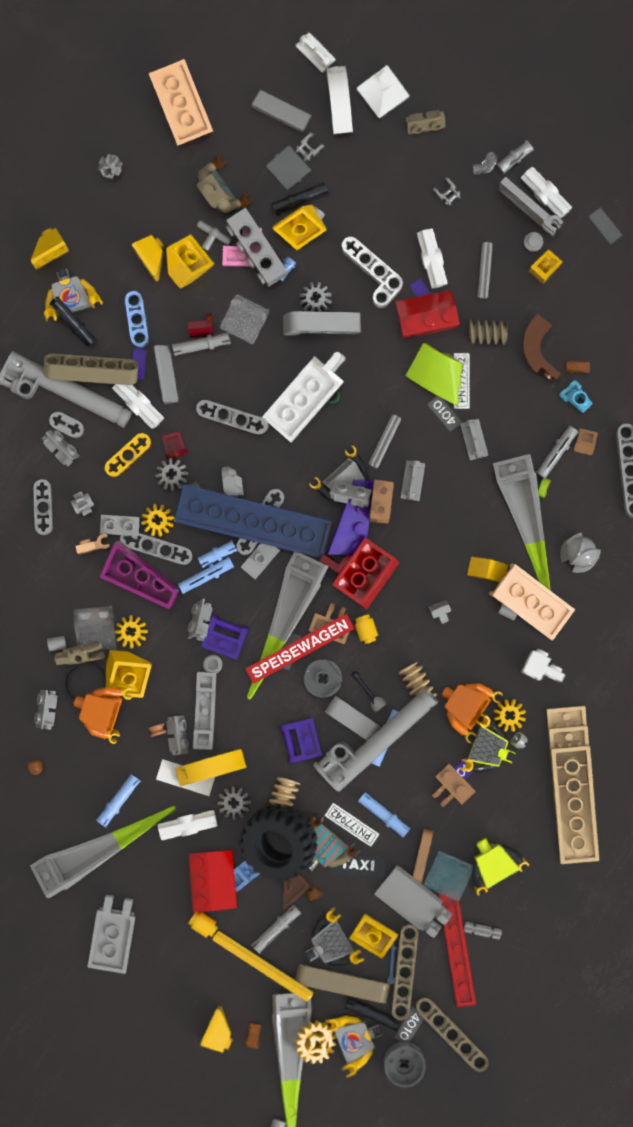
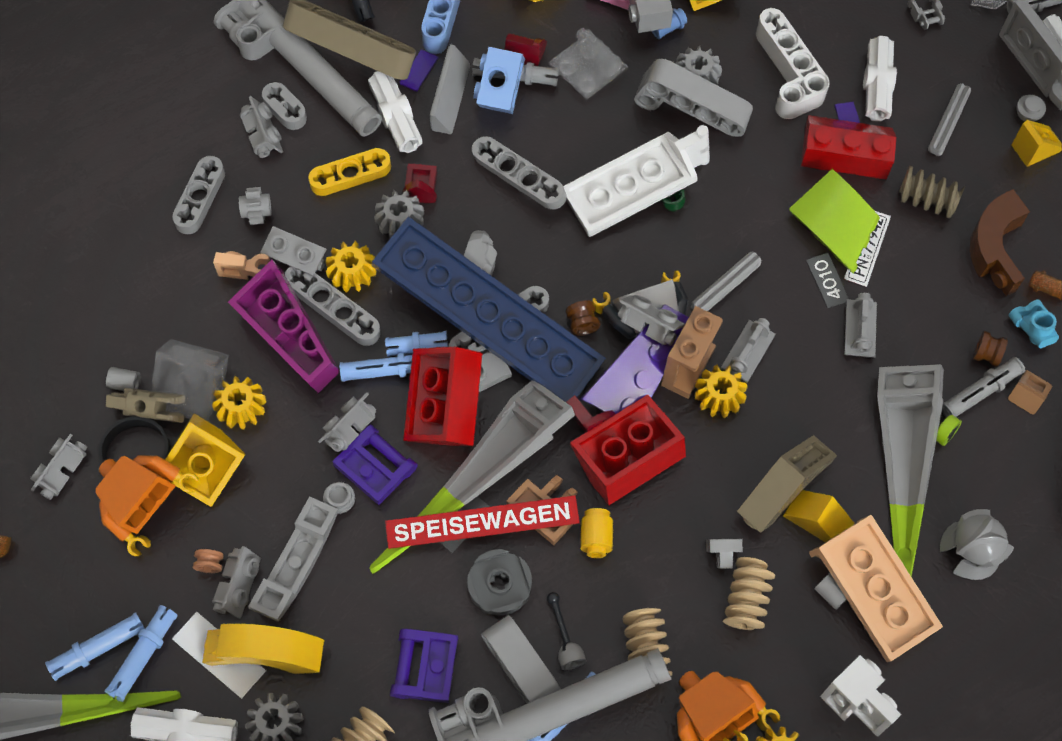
camera: 15 degrees right, 20 degrees down
(145, 794) = (140, 654): none -> light blue pin
(195, 347) = (502, 97): none -> light blue brick
(247, 584) = (443, 396): none -> red slope
(308, 499) = (582, 318): none -> reddish brown wheel
(411, 517) = (720, 380): none -> yellow gear
(463, 557) = (785, 482): none -> dark tan arch
(463, 632) = (747, 594): none -> tan piece
(554, 425) = (990, 349): none -> reddish brown wheel

